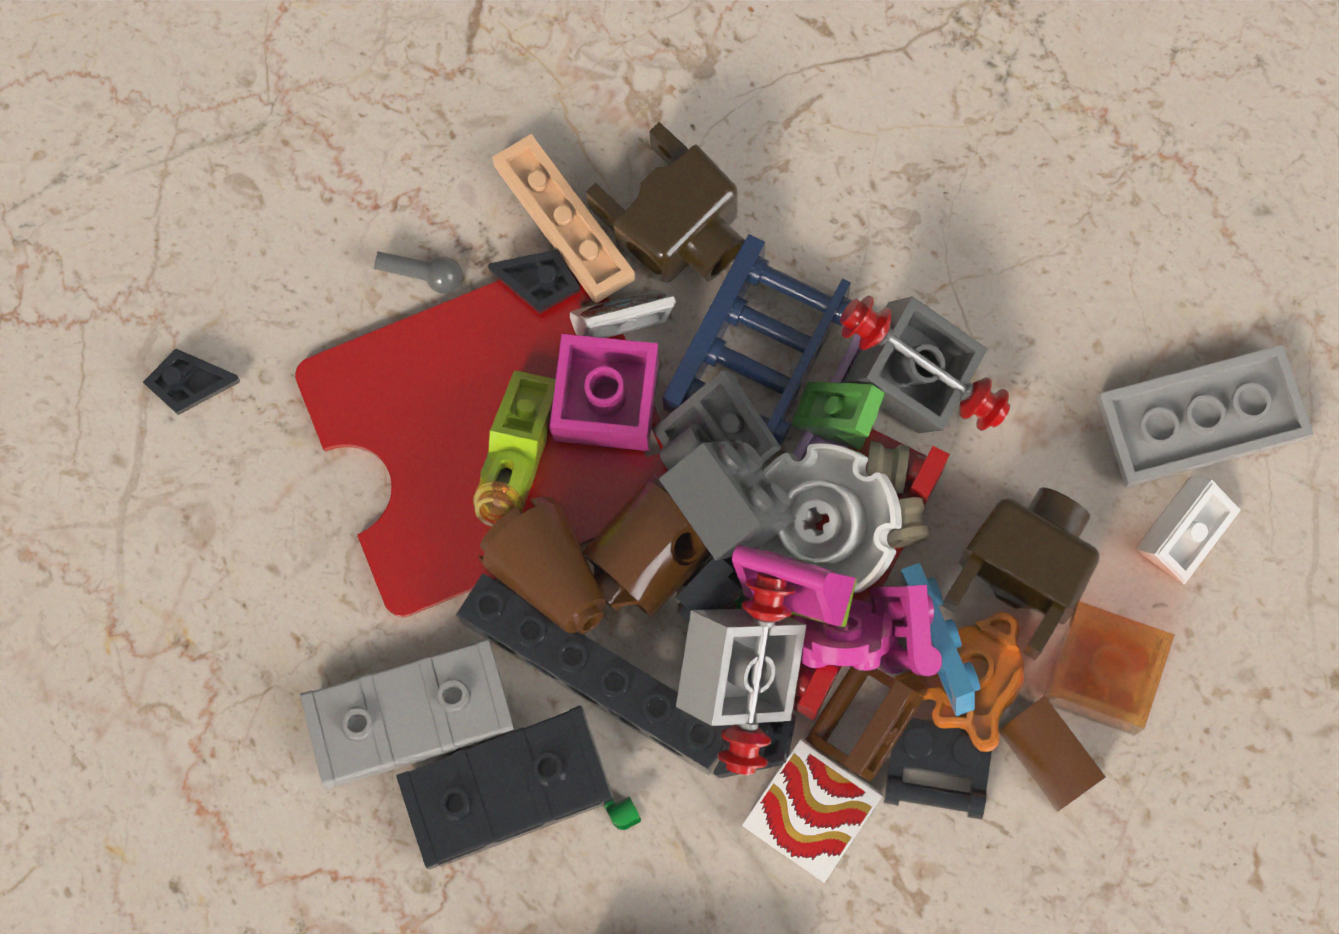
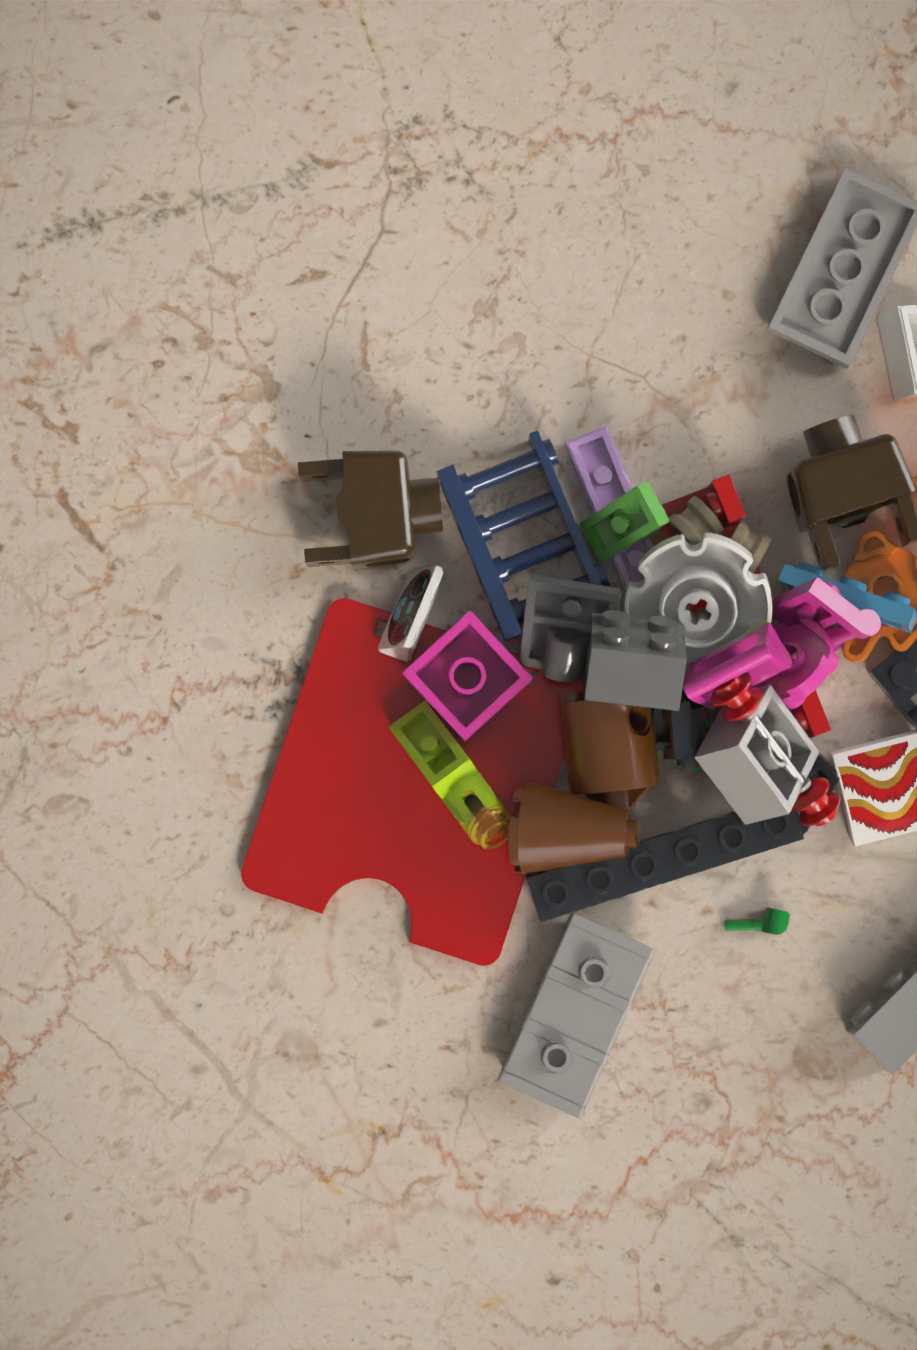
camera: 55 degrees left, 10 degrees up
(188, 381) = (183, 971): black piece -> none
(442, 274) = (261, 716): dark grey bar -> none
(505, 788) = (689, 990): black container -> none
(537, 279) = (332, 651): black piece -> none
(563, 218) = (301, 592): light nougat plate -> none
(880, 733) = (880, 699): reddish brown tile -> none
(920, 365) = (645, 436): dark grey brick -> none

